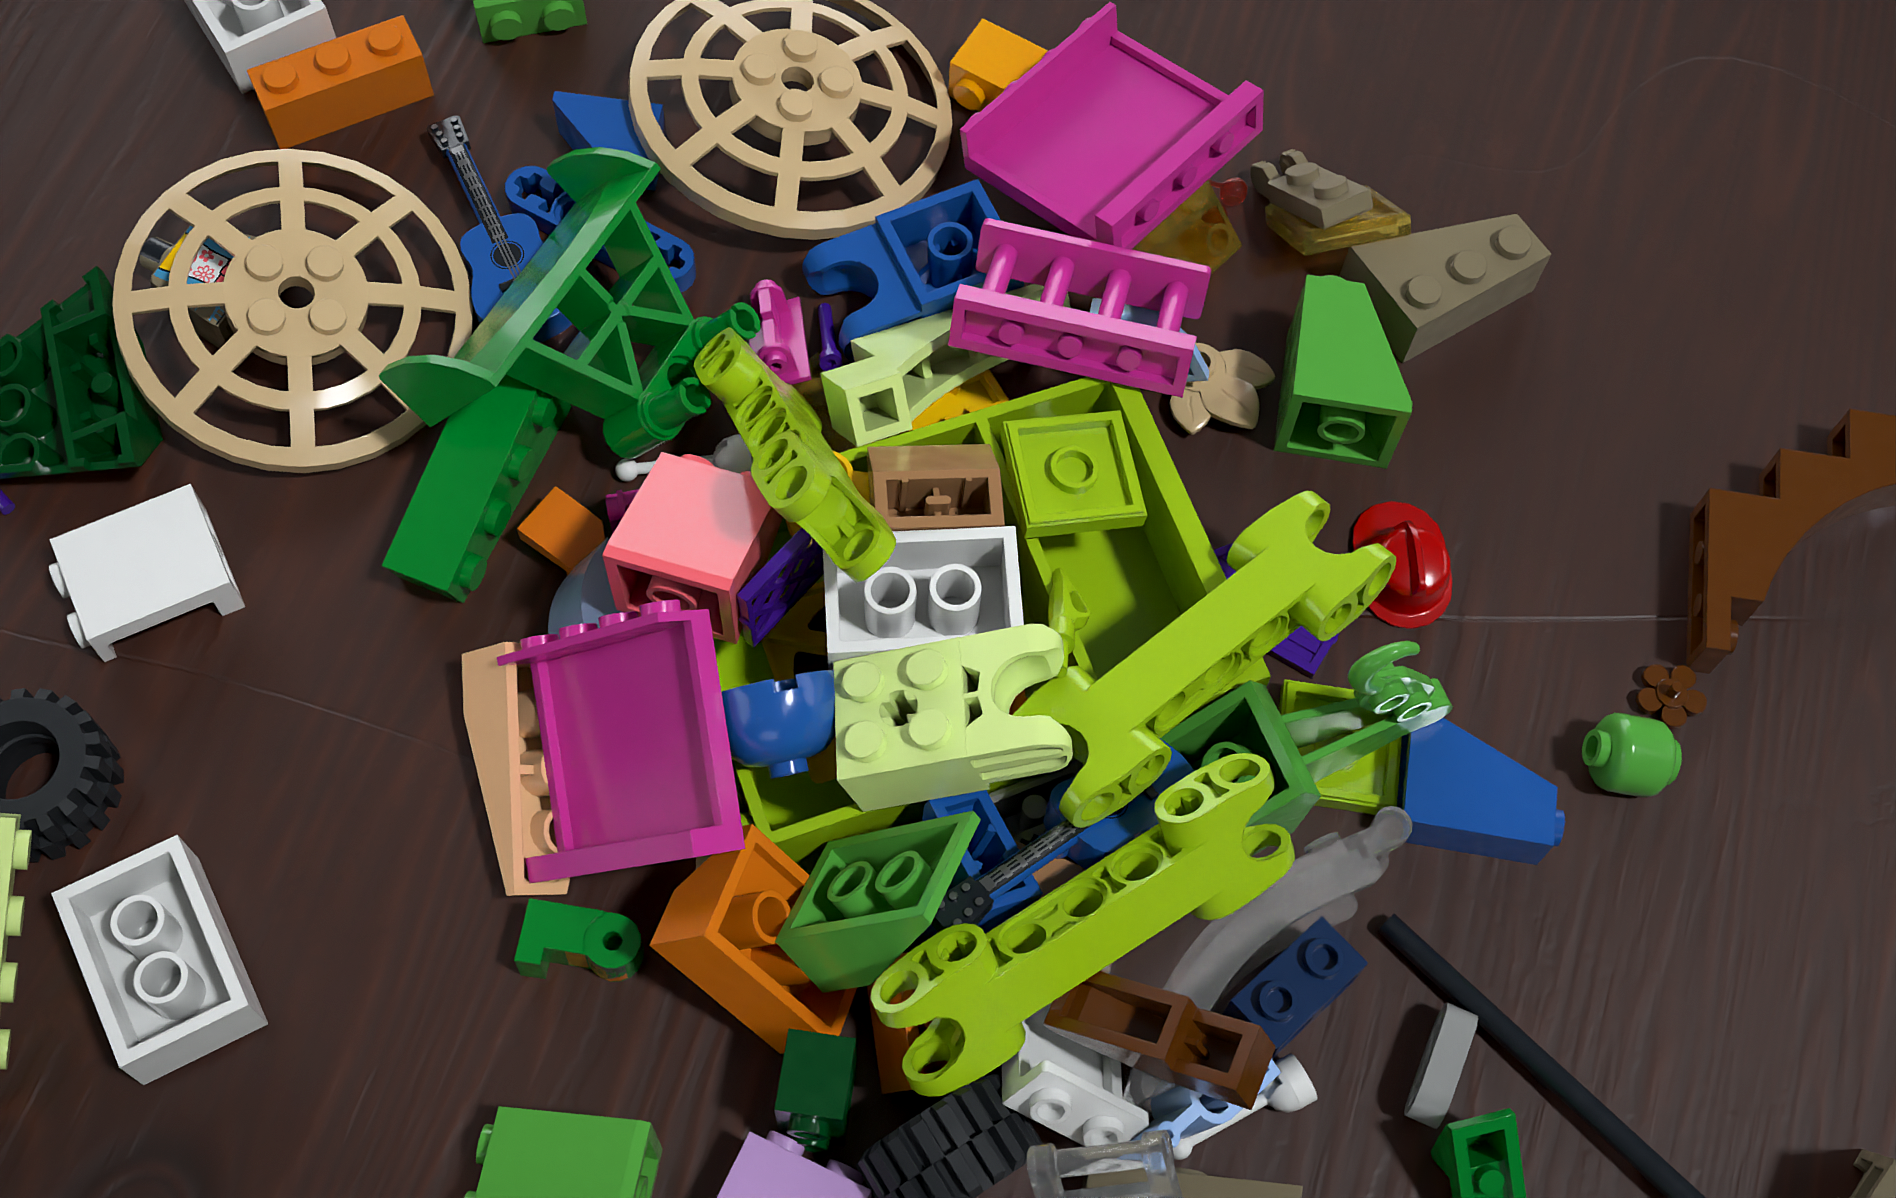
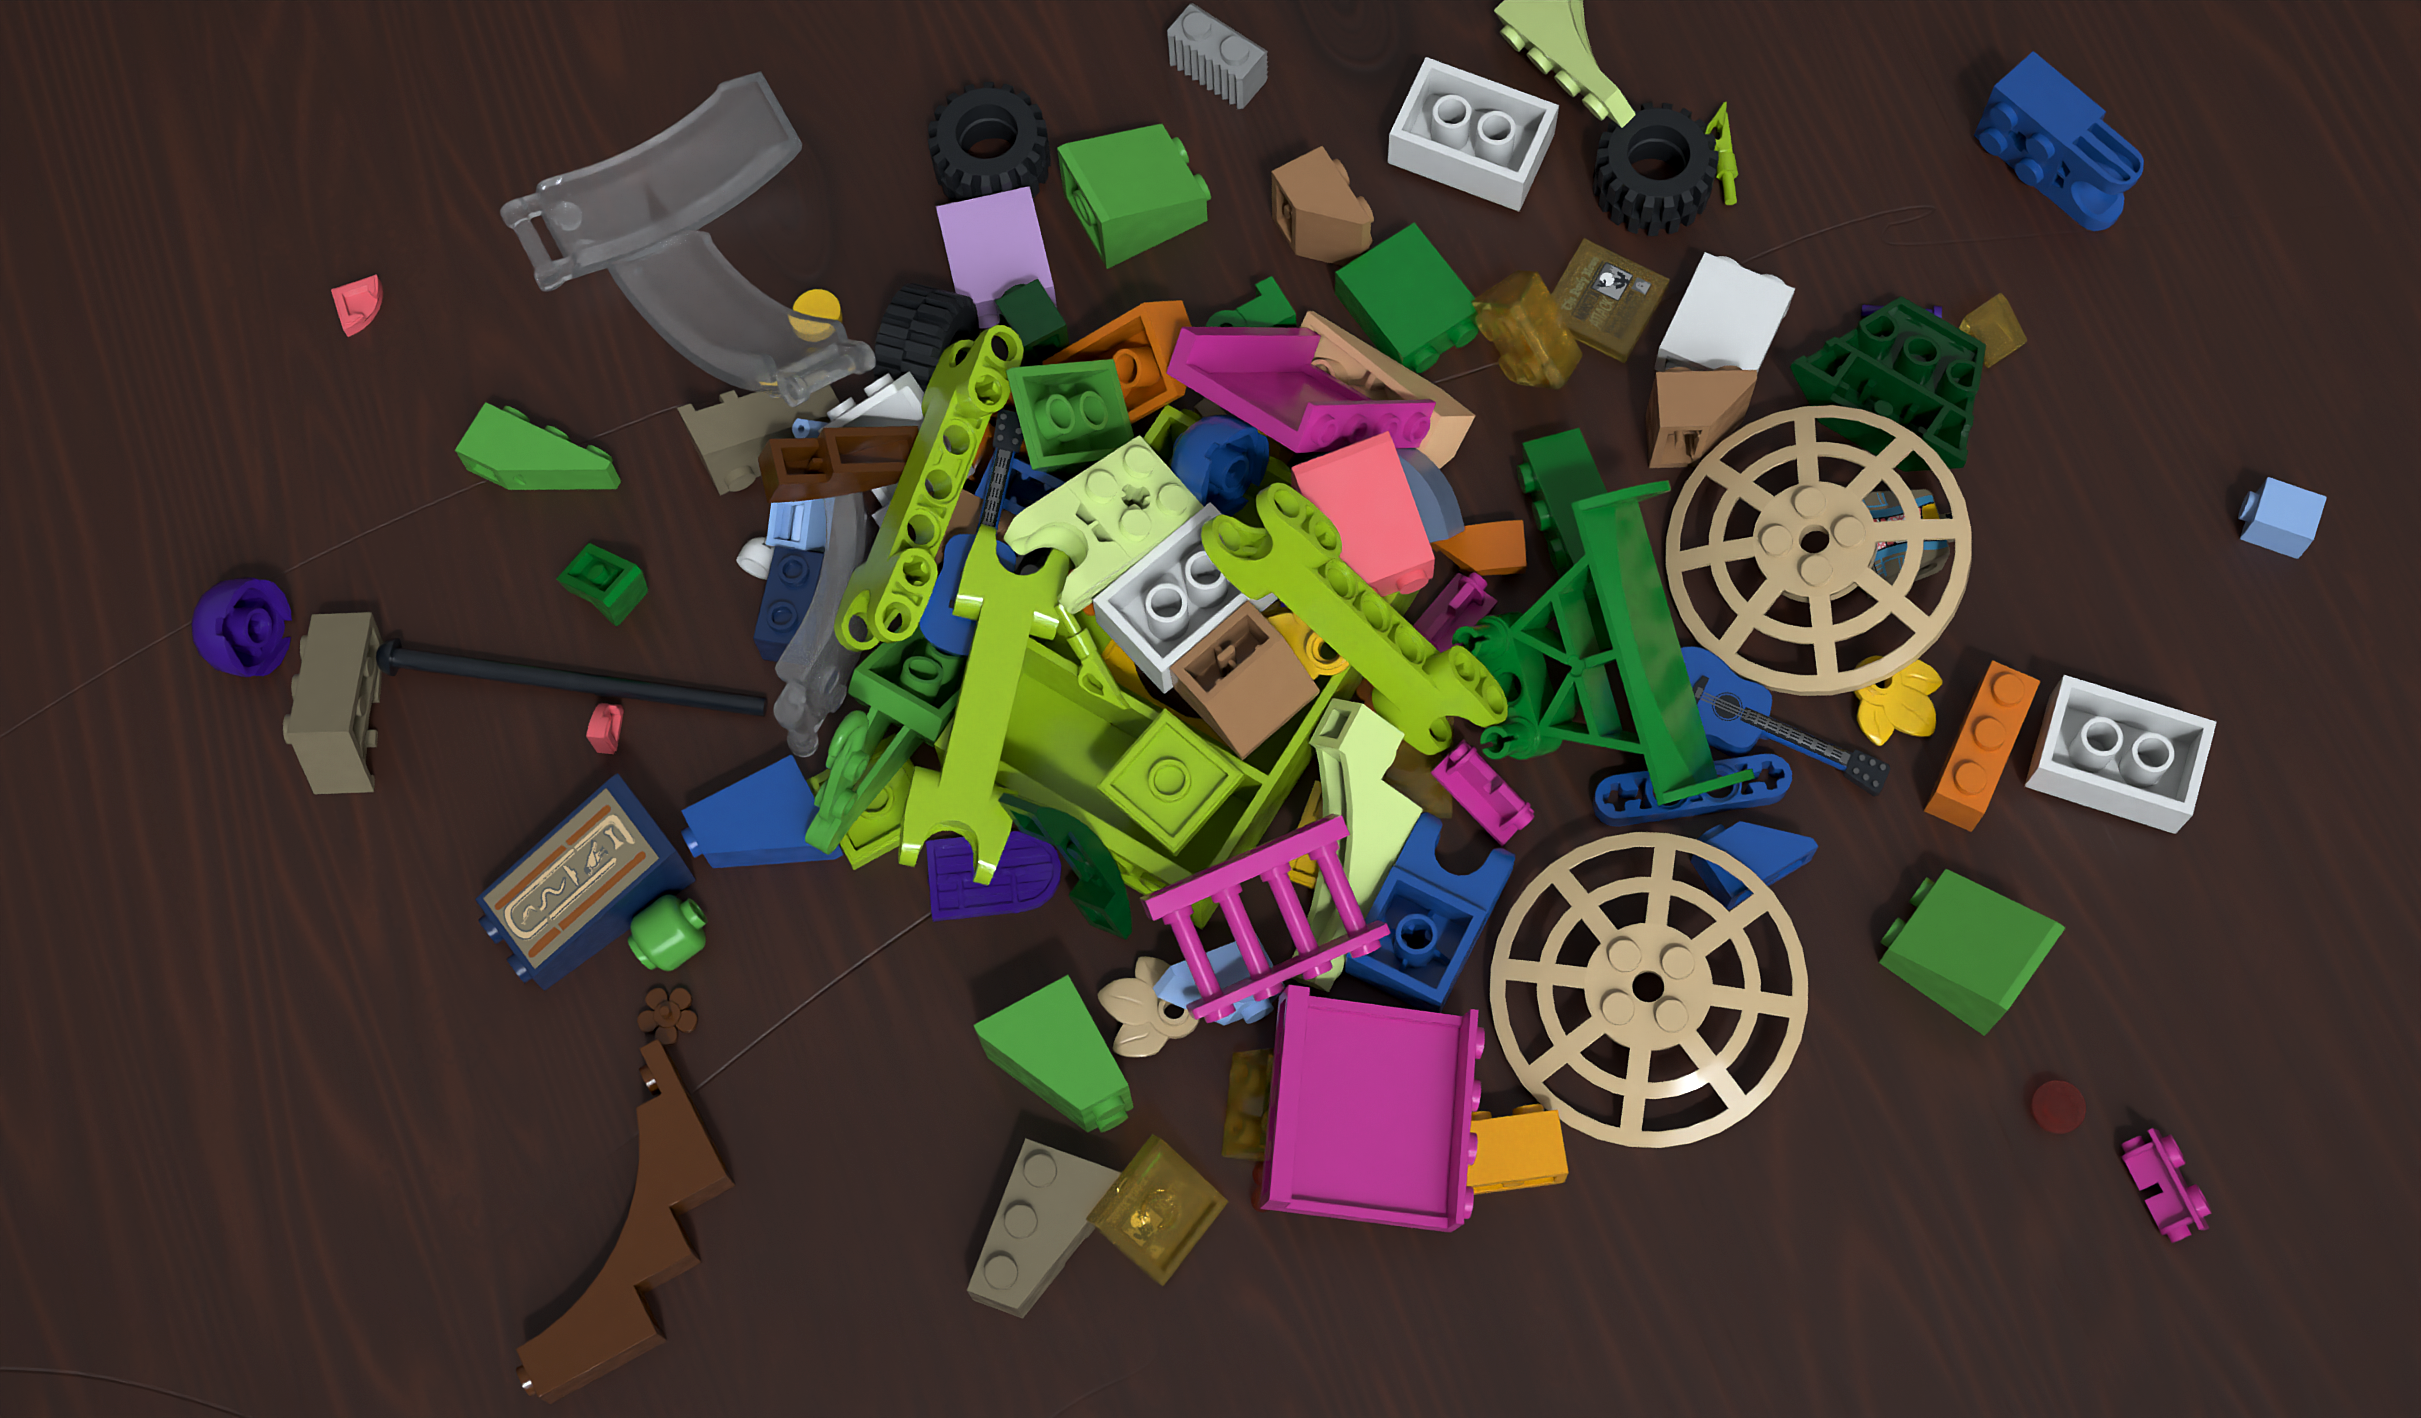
camera: 150 degrees right, 5 degrees up
(218, 700) = (1607, 299): none -> clear yellow tile
(269, 492) = (1694, 412): none -> medium nougat slope
(332, 685) = (1527, 331): none -> clear yellow slope
(373, 154) = (1899, 704): none -> yellow plate
(393, 995) = (1320, 210): none -> medium nougat slope
(402, 837) = (1408, 300): none -> green brick
(829, 357) = (1433, 802): dark purple piece -> none
(1222, 493) = (1101, 890): none -> dark green slope
(1310, 190) = (1191, 1210): dark tan hinge -> none
(1422, 573) = (922, 978): red piece -> none
(1441, 1065) = (671, 635): light grey beam -> none
(1571, 1018) = (605, 727): none -> coral tile
(1691, 852) = (581, 885): none -> slope

